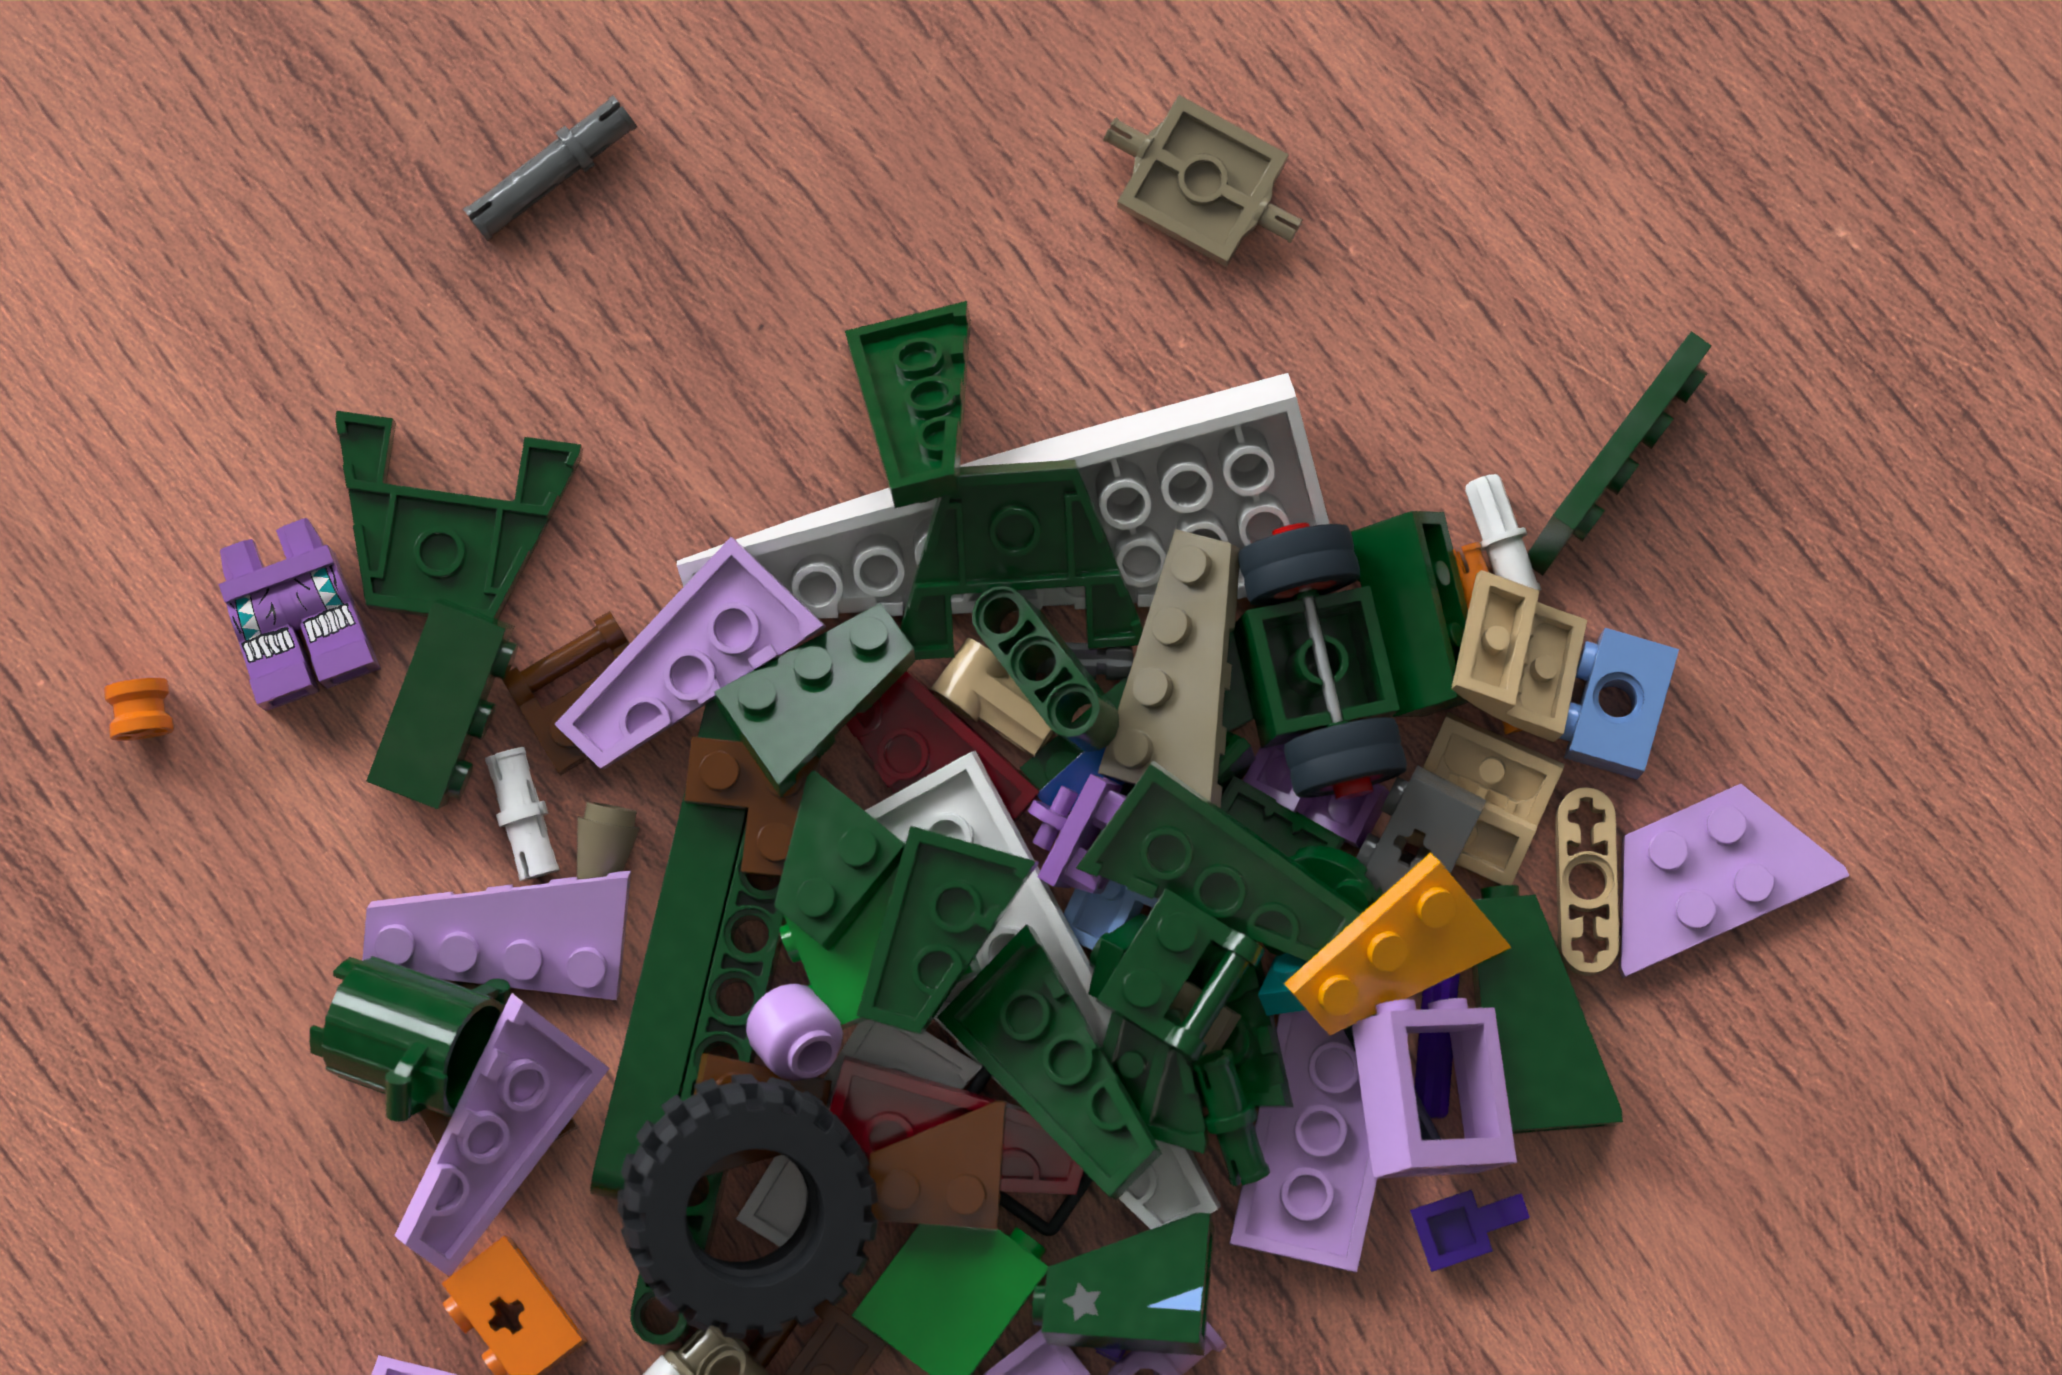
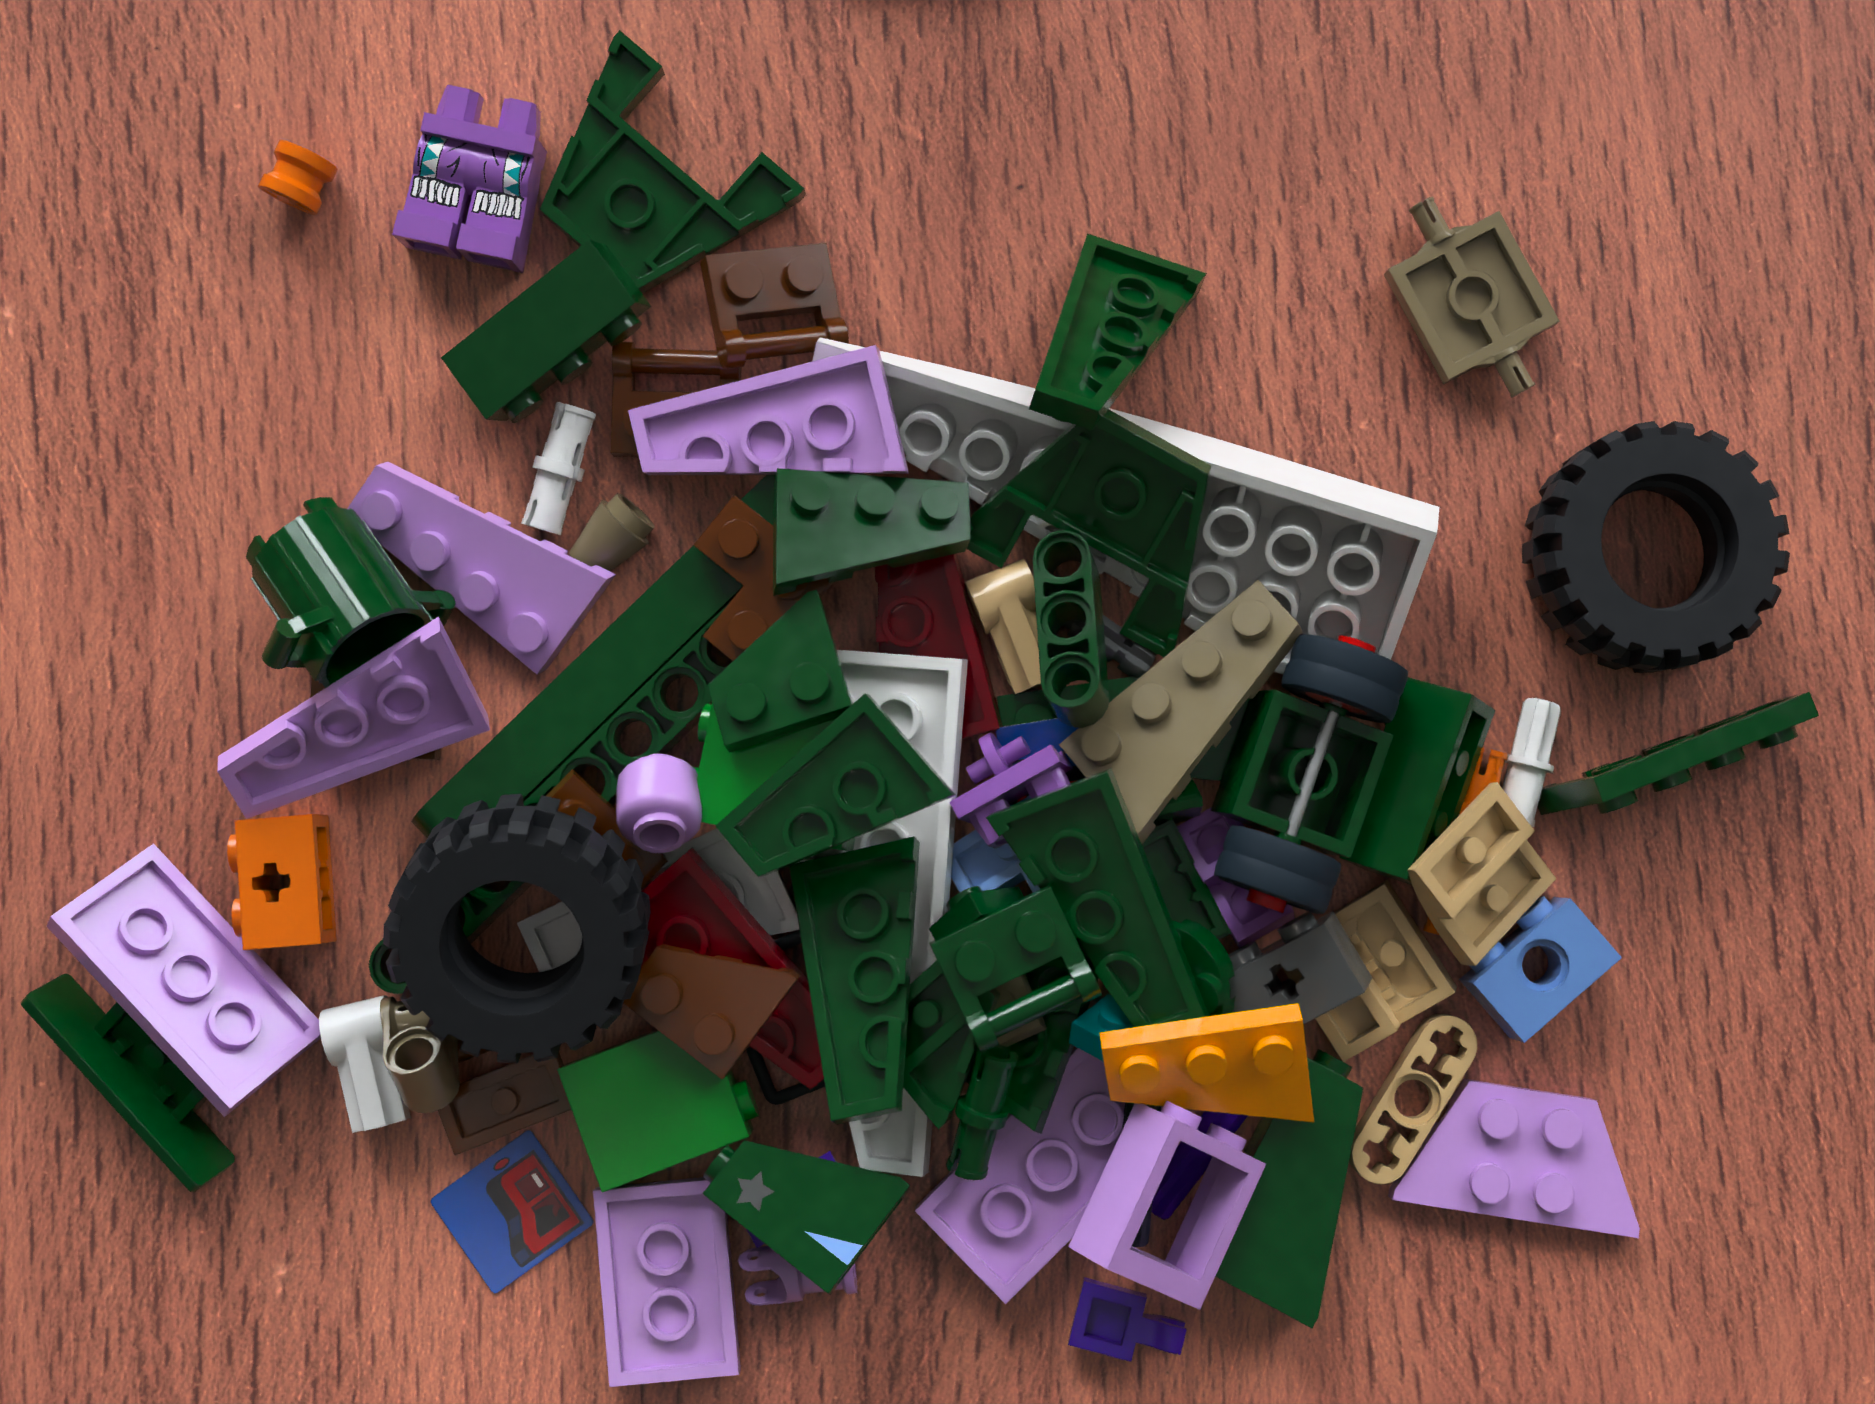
camera: 30 degrees right, 5 degrees up
(605, 544) = (767, 286): none -> reddish brown plate
(1505, 214) = (1735, 533): none -> black tyre

